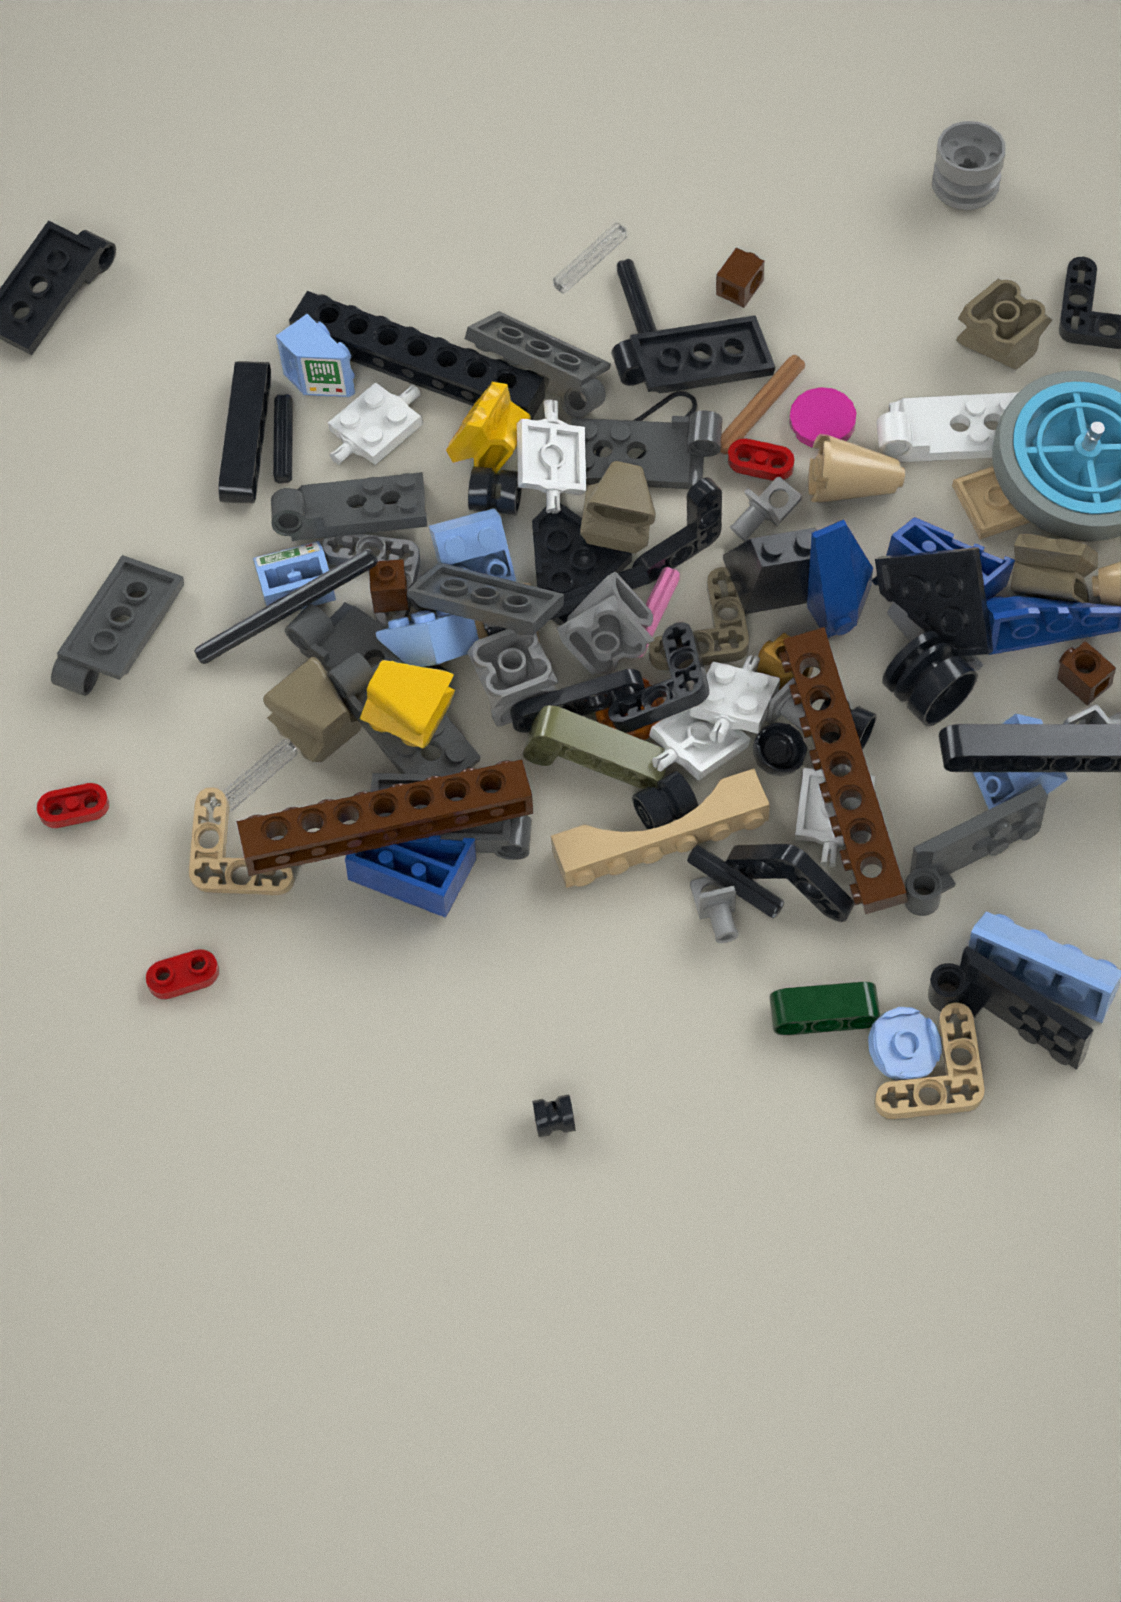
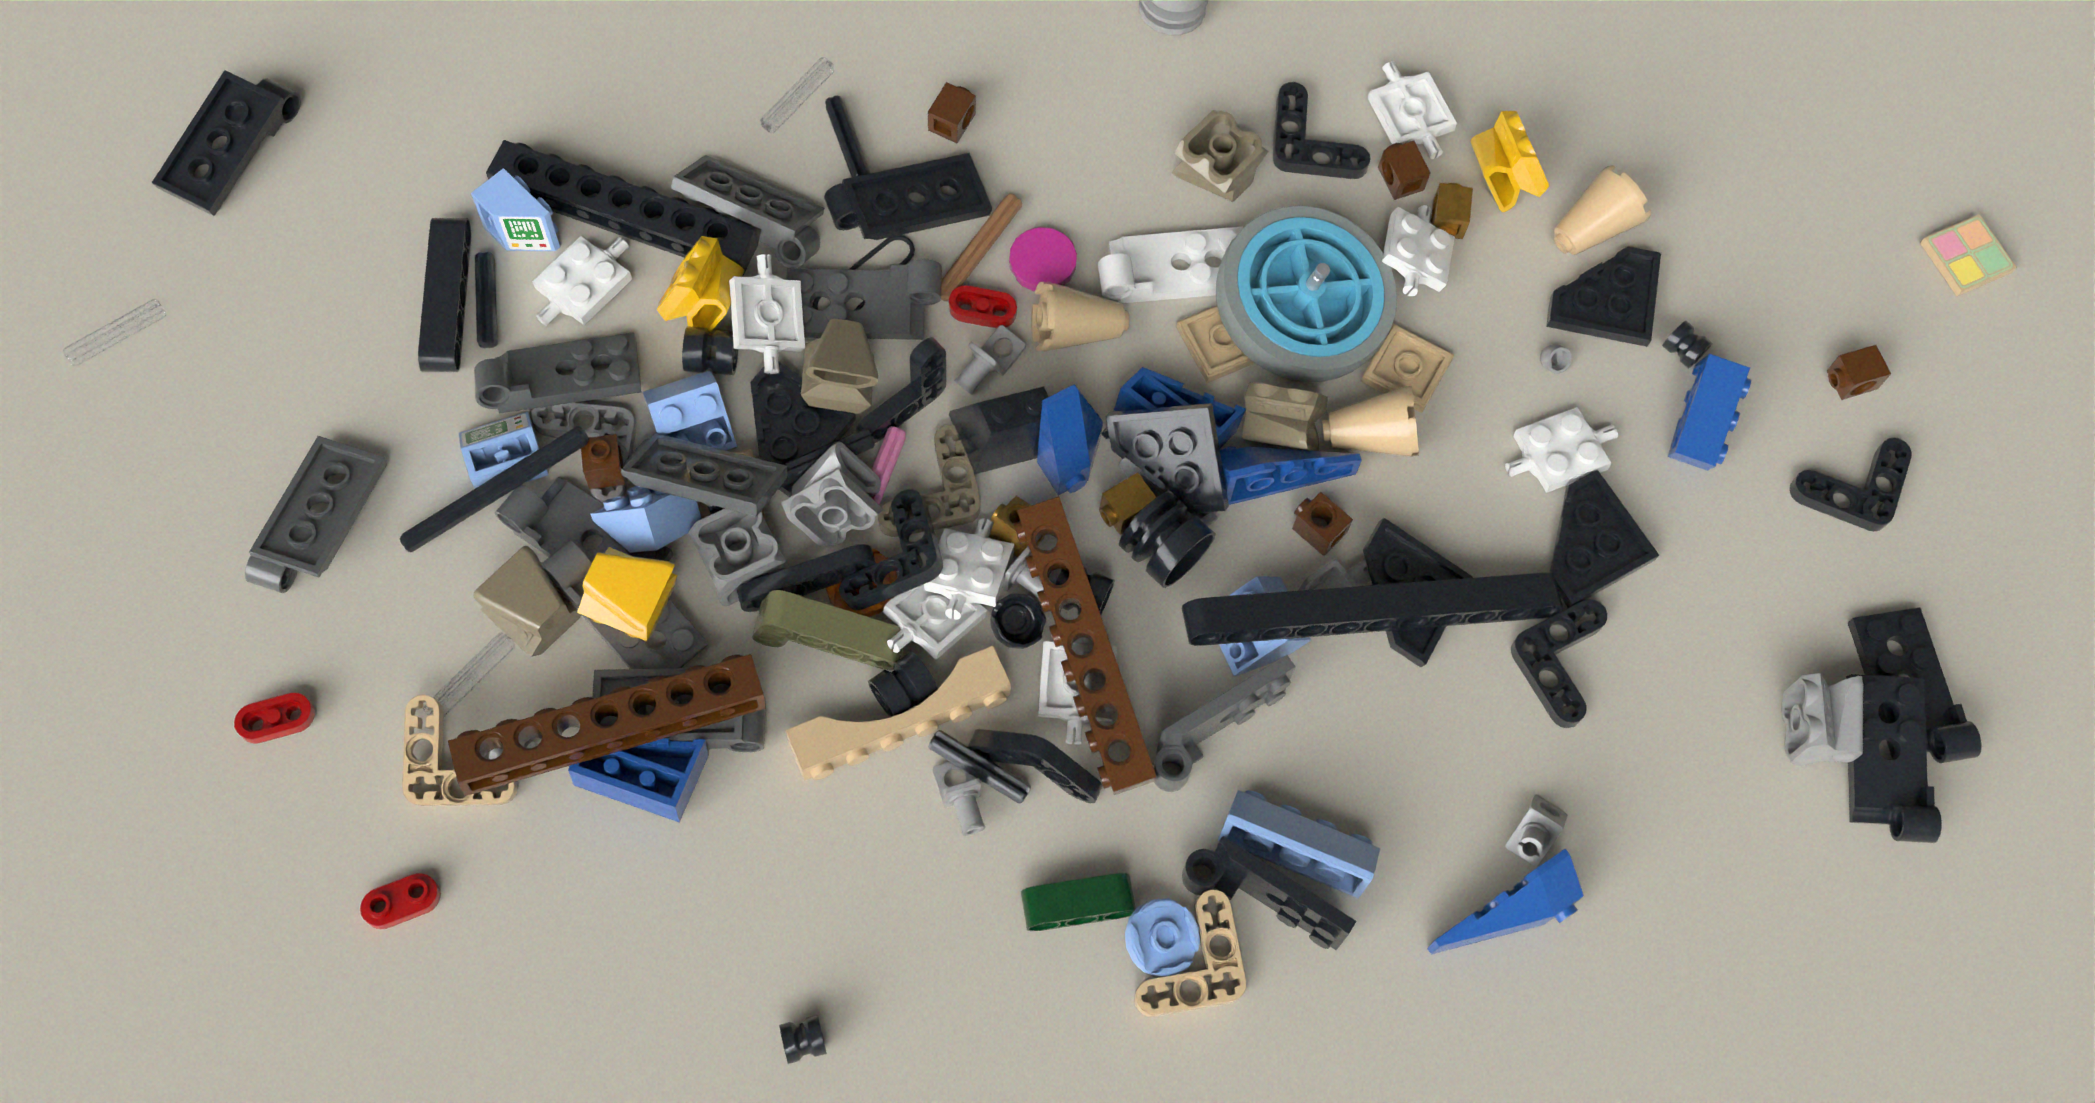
camera: 15 degrees left, 5 degrees up
(888, 642) = (1124, 502): none -> pearl gold brick

